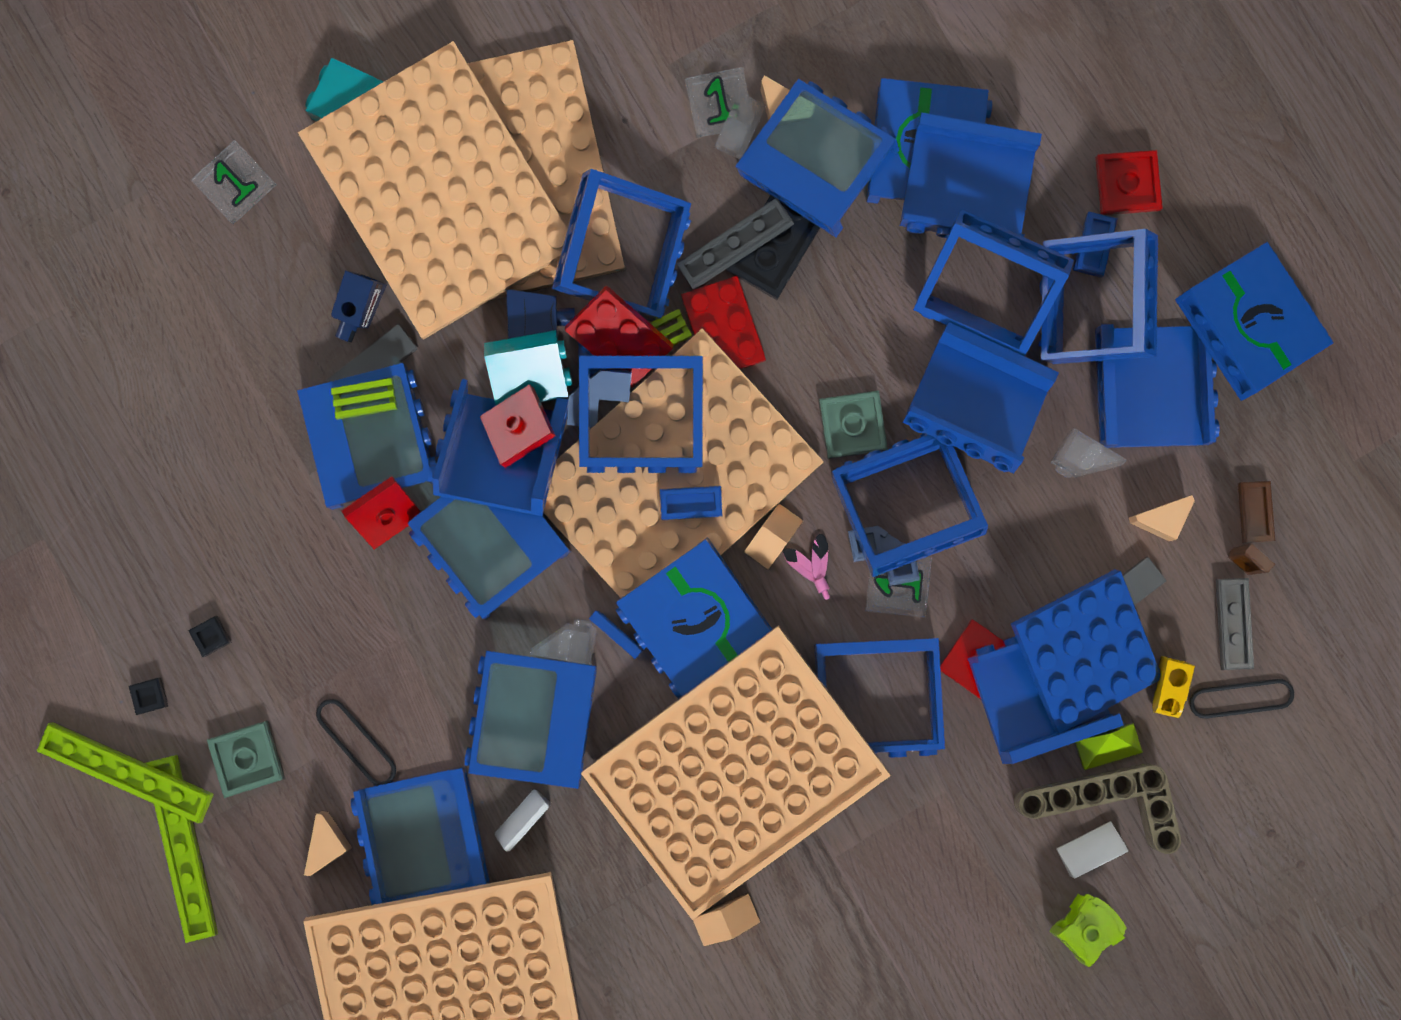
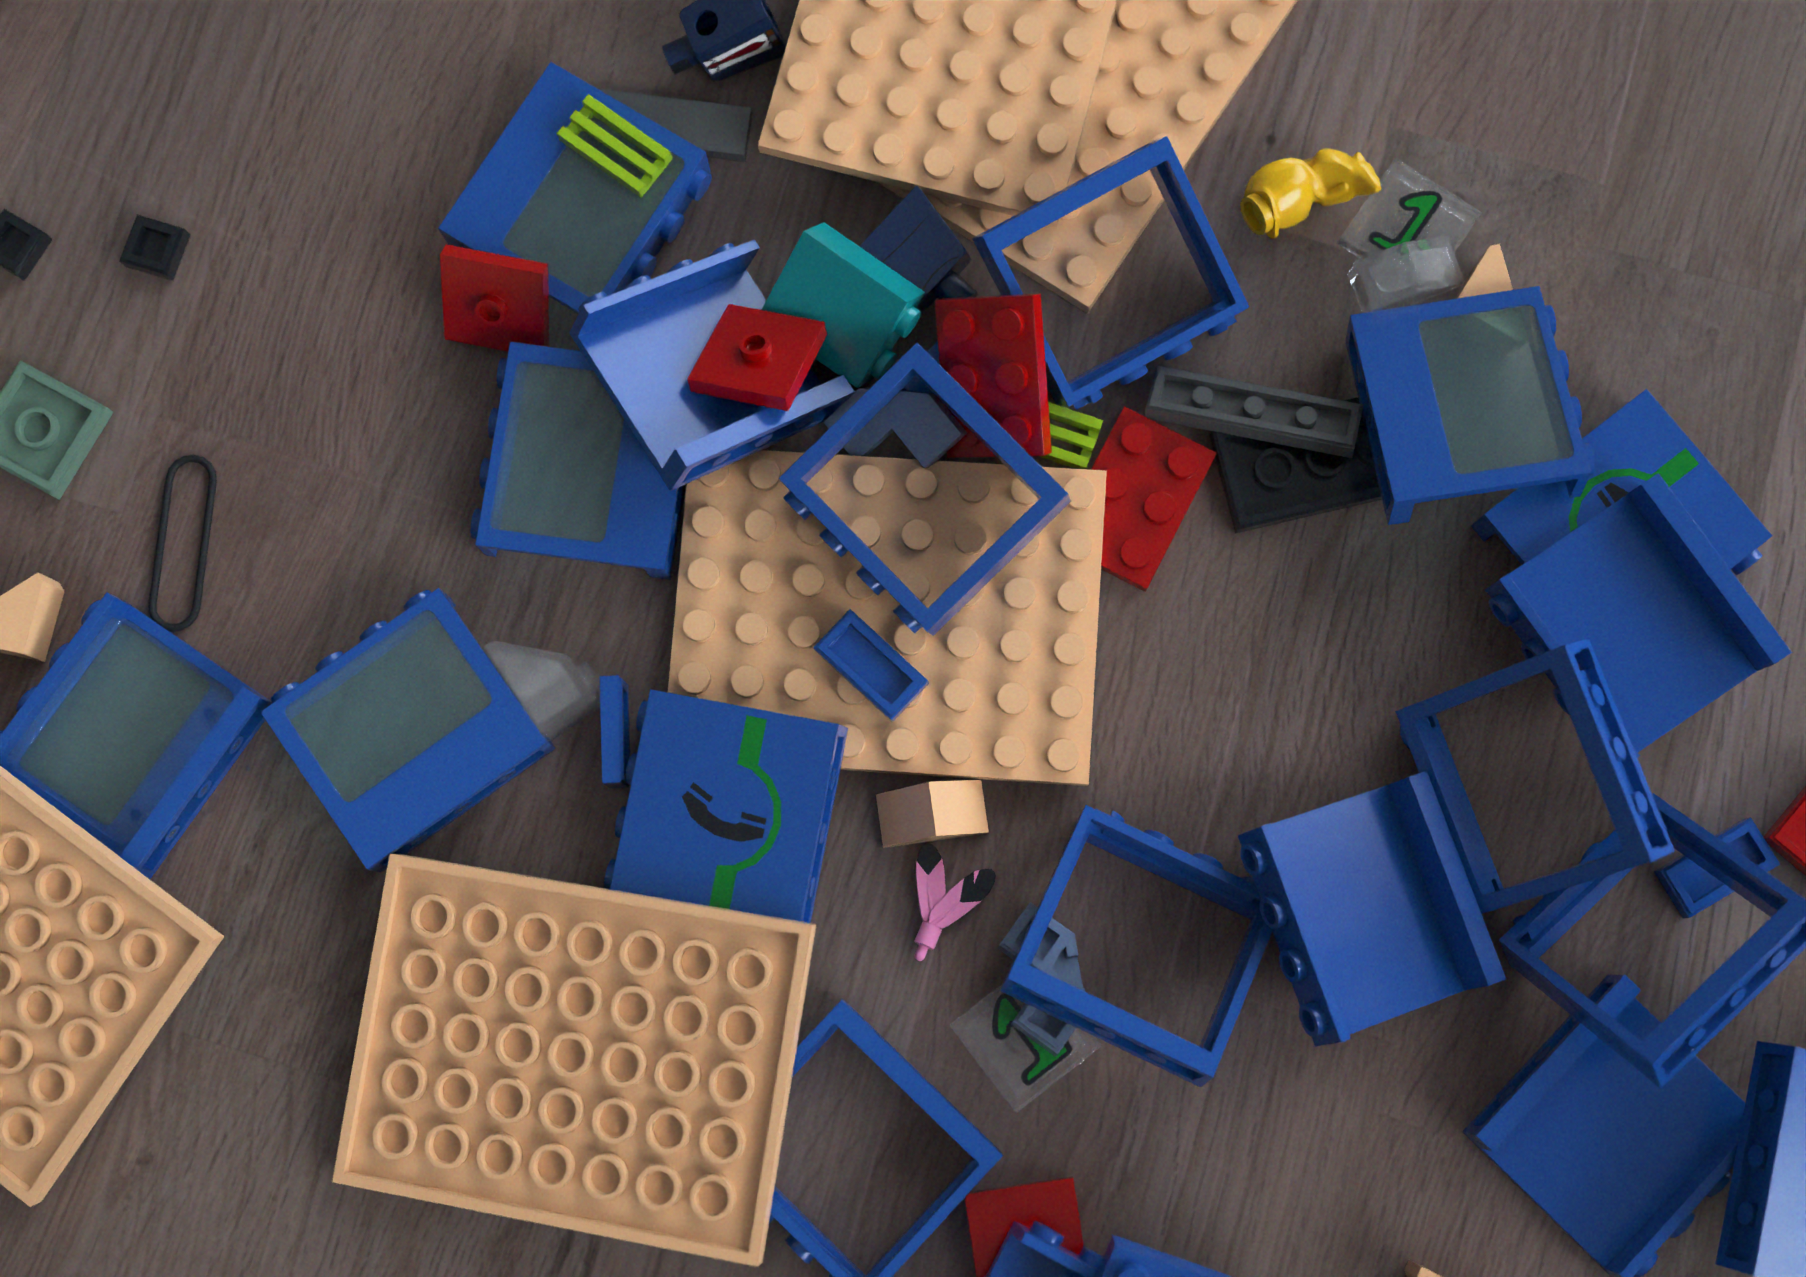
camera: 50 degrees right, 5 degrees down
(522, 820) = (267, 839): white slope -> none
(655, 137) = (1285, 189): none -> yellow animal
(726, 920) = (375, 1230): light nougat slope -> none
(853, 424) = (1173, 777): sand green tile -> none
(1084, 456) = (1430, 1119): clear slope -> none

